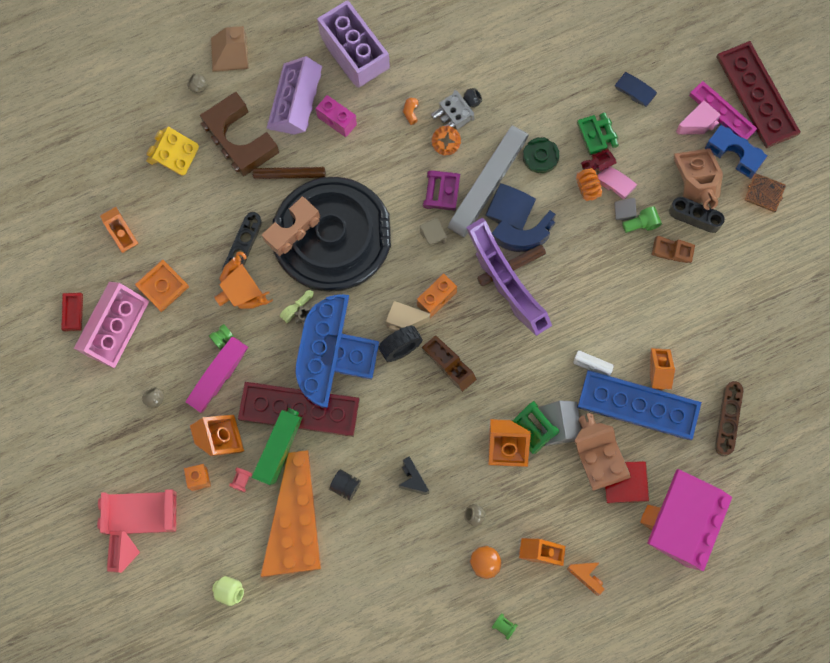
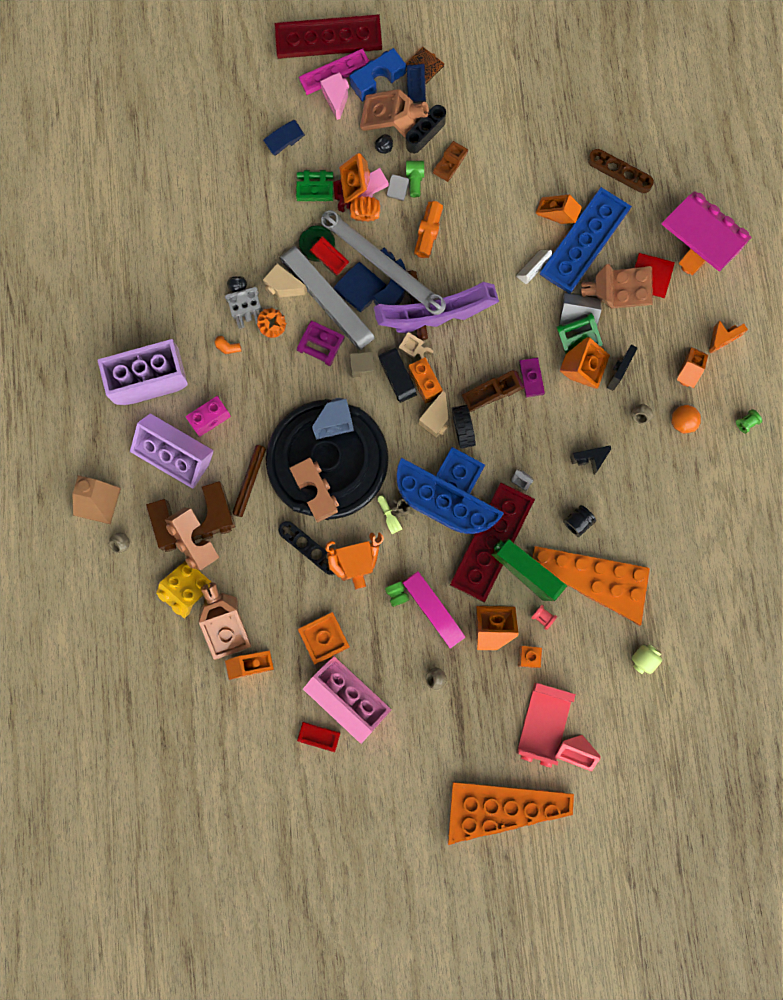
camera: 70 degrees left, 5 degrees up
(47, 490) = (490, 809): none -> orange wing
(148, 191) = (222, 623): none -> nougat plate
(222, 124) = (181, 526): none -> nougat arch
(362, 219) = (333, 419): none -> sand blue slope
(369, 417) = (522, 479): none -> light grey slope
(433, 268) = (397, 375): none -> black beam
(467, 274) = (412, 345): none -> tan plate
(477, 396) = (531, 377): none -> magenta plate
(487, 136) = (283, 283): none -> tan slope
(513, 477) = (621, 367): none -> black plate
(530, 169) = (329, 256): none -> red tile
(538, 218) = (383, 262): none -> light grey piece
(592, 251) = (428, 229): none -> orange piece
(613, 163) = (354, 177): none -> orange slope
(665, 181) = (384, 144): none -> black piece
(741, 190) = (416, 83): none -> dark blue plate

